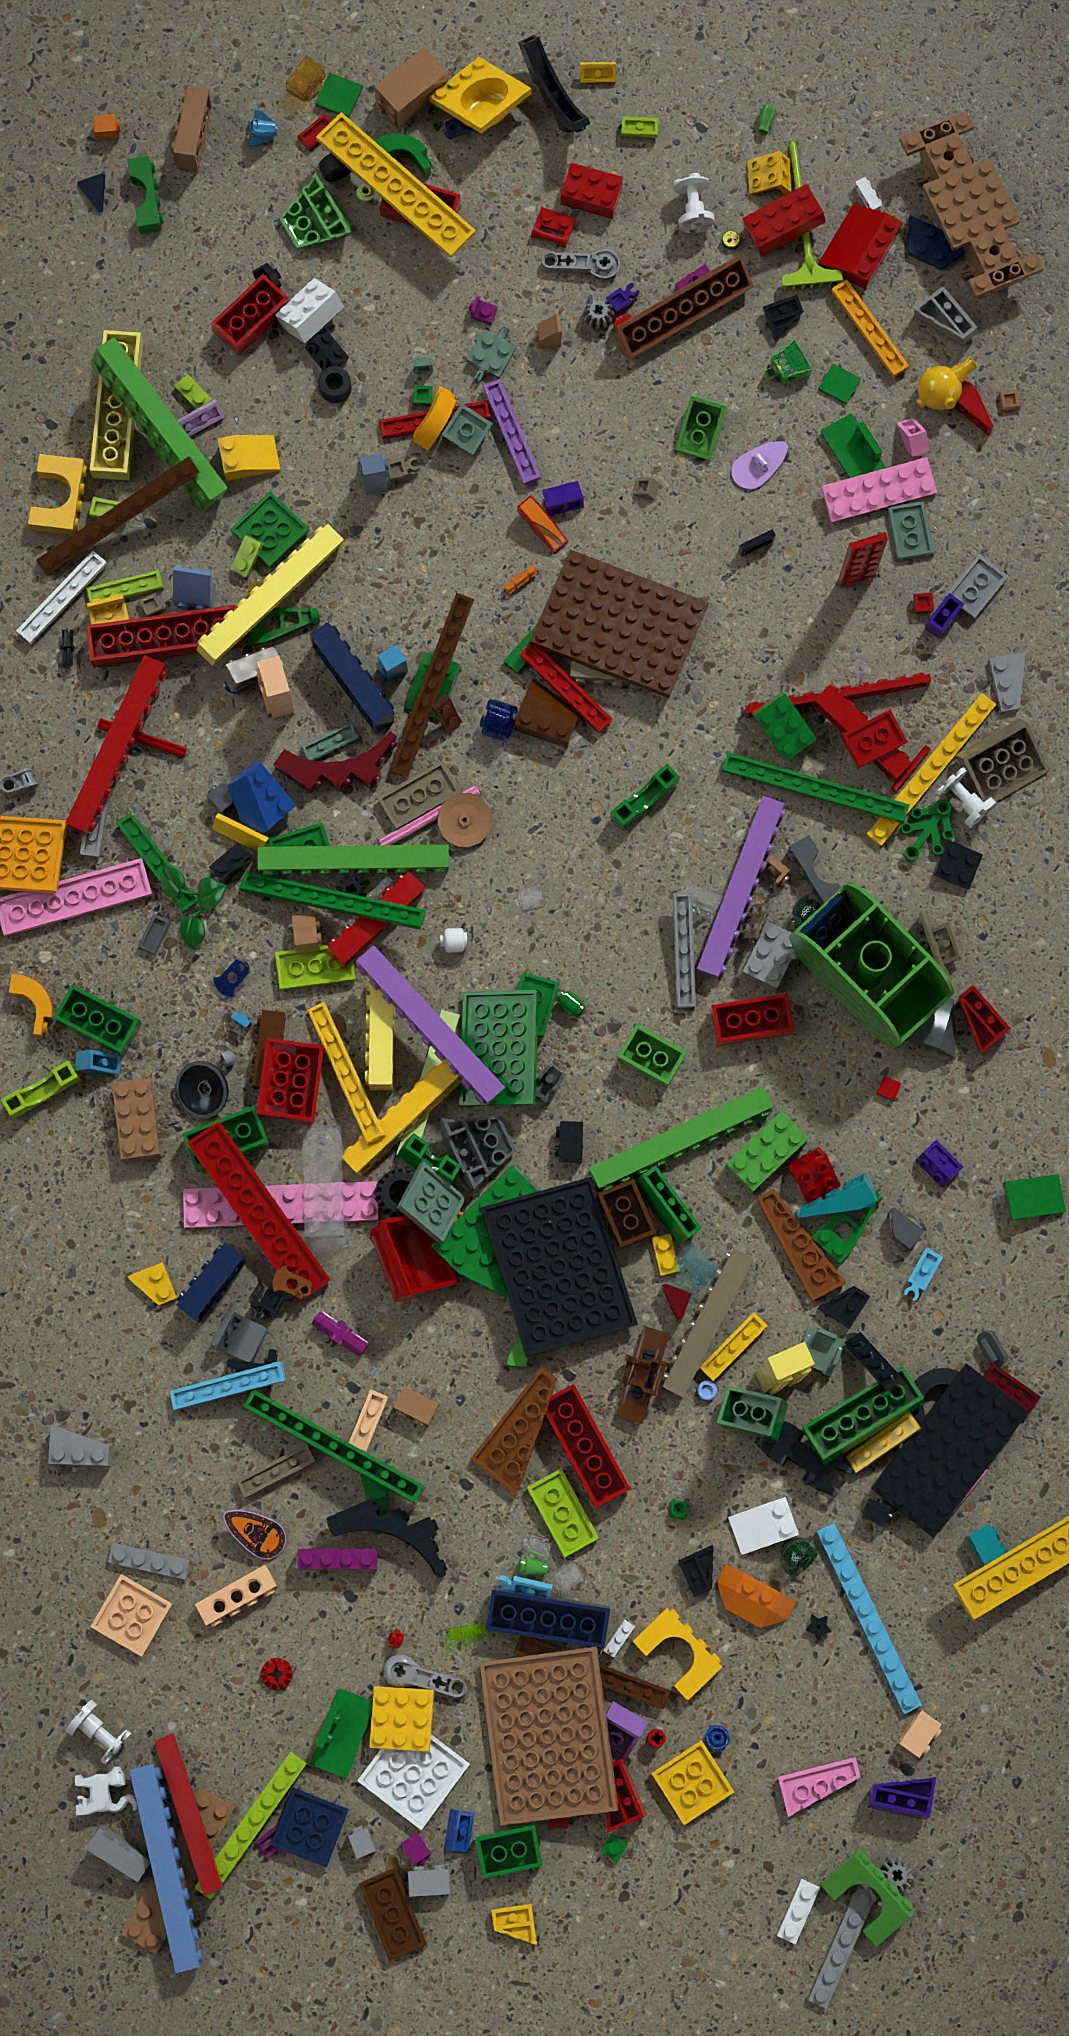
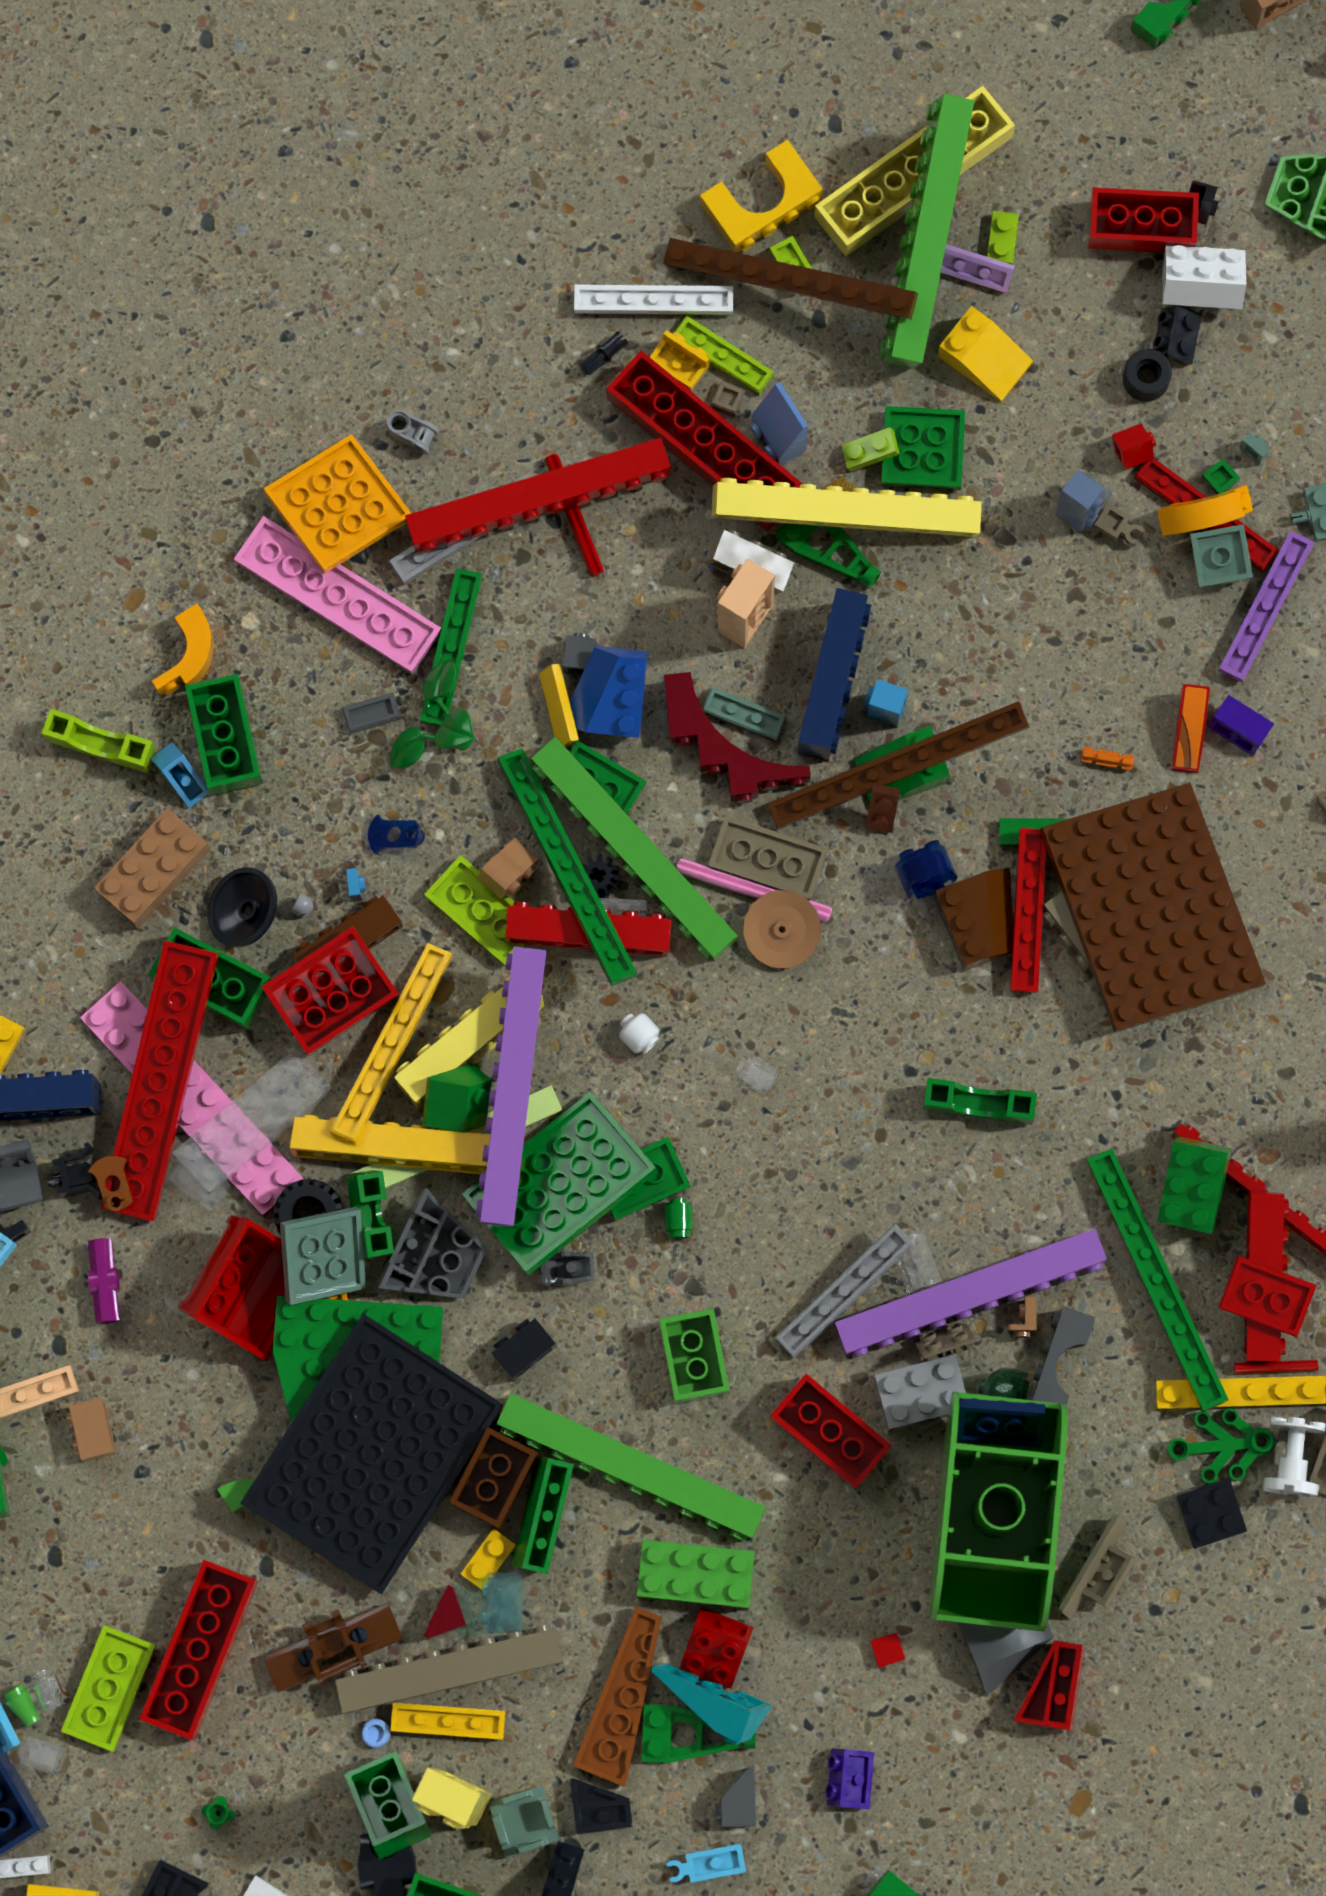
camera: 55 degrees right, 0 degrees up
(230, 863) = (515, 724): black brick -> none
(367, 423) = (1133, 446): none -> red brick
(409, 1061) = (457, 1099): none -> green slope
(512, 1441) = (137, 1566): dark orange wing -> none

